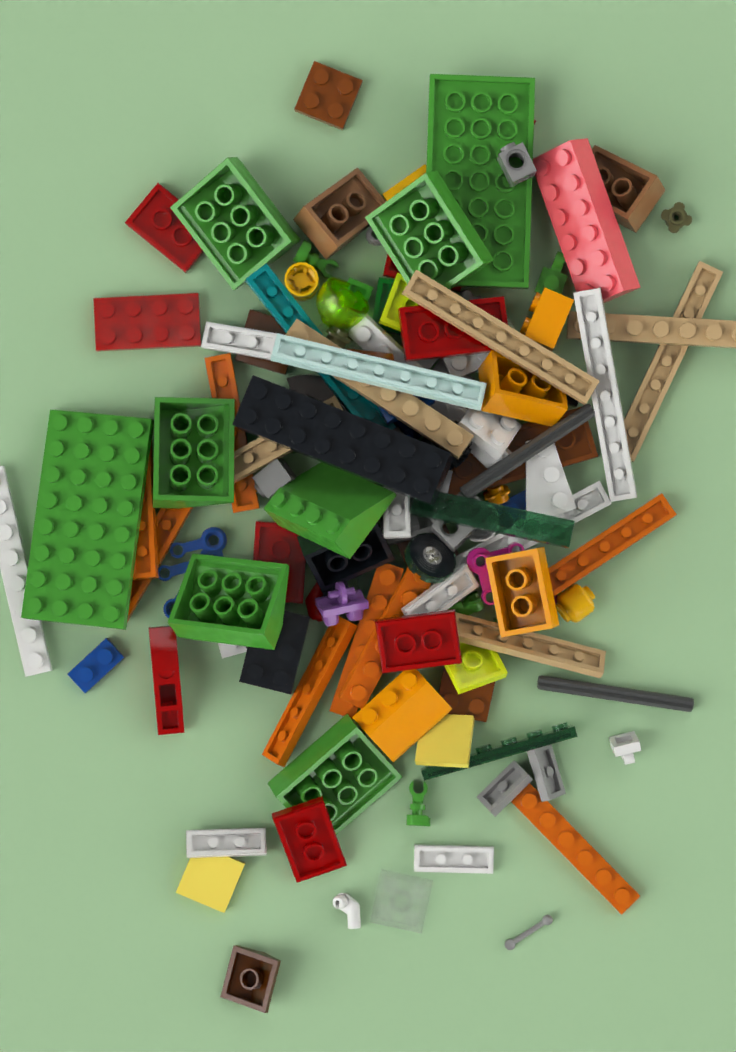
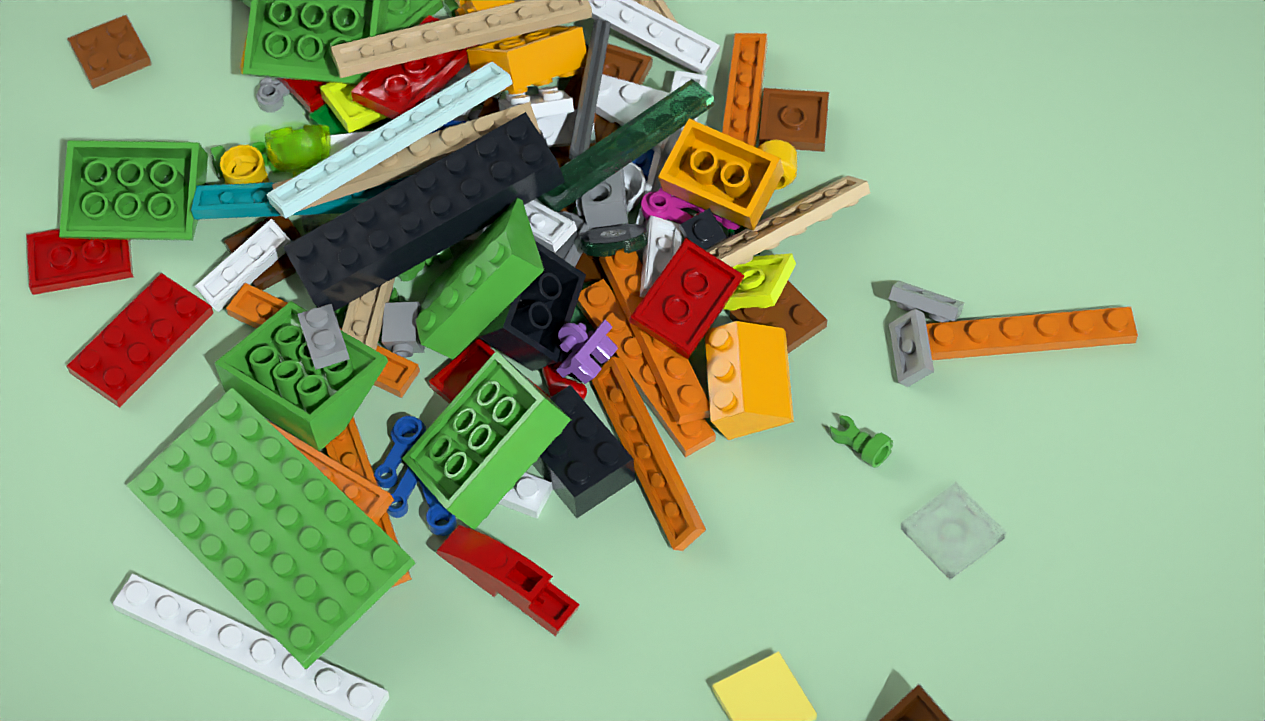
camera: 45 degrees left, 30 degrees down
(96, 665) = (426, 644): blue plate -> none
(218, 449) = (323, 336): none -> light grey plate
(226, 842) = (738, 652): white tile -> none
(309, 839) = (806, 559): red tile -> none
(339, 213) = (219, 109): medium nougat slope -> none
(341, 769) = (763, 496): bright green slope -> none
(350, 907) = (920, 583): white arm -> none
(447, 742) = (817, 358): light yellow tile -> none
(453, 858) = (947, 450): white tile -> none
(479, 606) = (703, 230): none -> black plate
(508, 748) = (861, 338): clear green plate -> none
(510, 943) = (1088, 461): light grey hinge -> none
(615, 693) = (896, 196): dark grey axle -> none
(622, 584) = (795, 118): none -> dark orange plate
(625, 745) = (961, 218): white tile -> none

